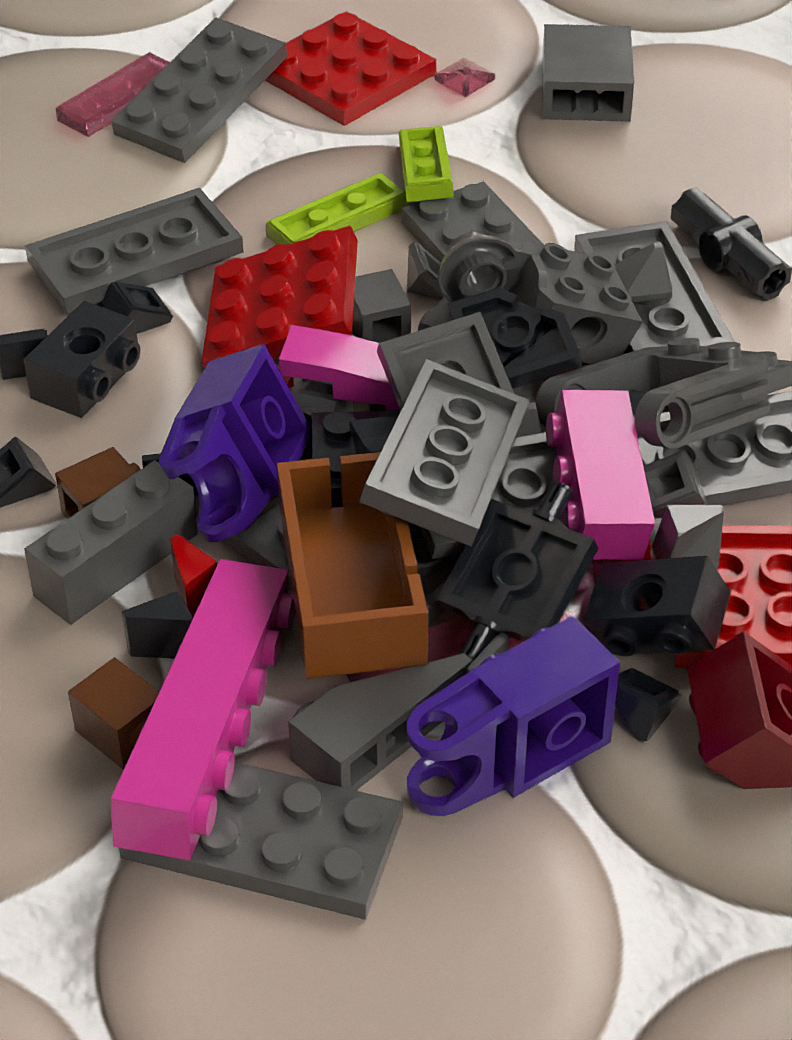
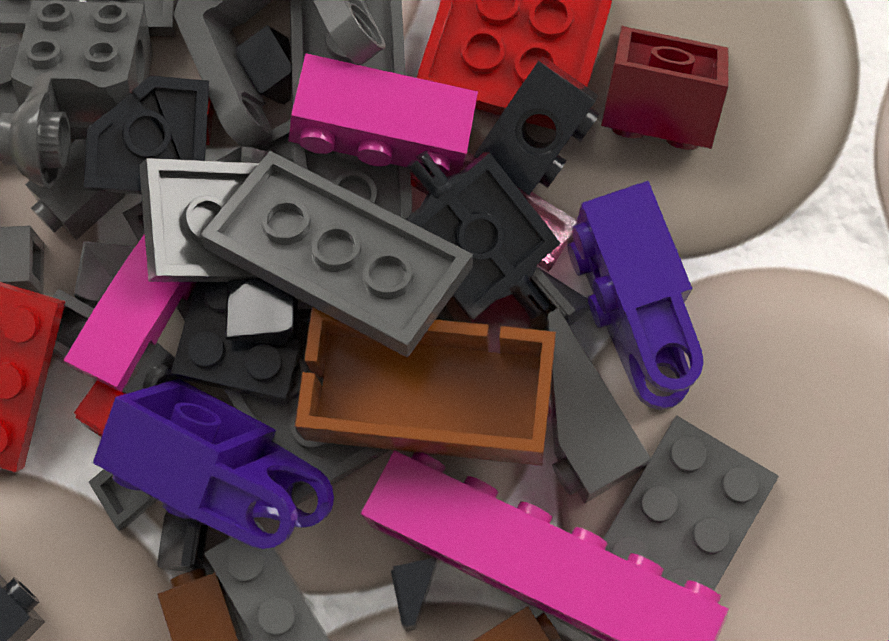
camera: 75 degrees left, 30 degrees up
(191, 571) = (350, 546): red slope -> none
(644, 702) = (602, 172): black slope -> none
(673, 482) = (403, 54): dark grey slope -> none
(690, 532) = (470, 65): dark grey slope -> none

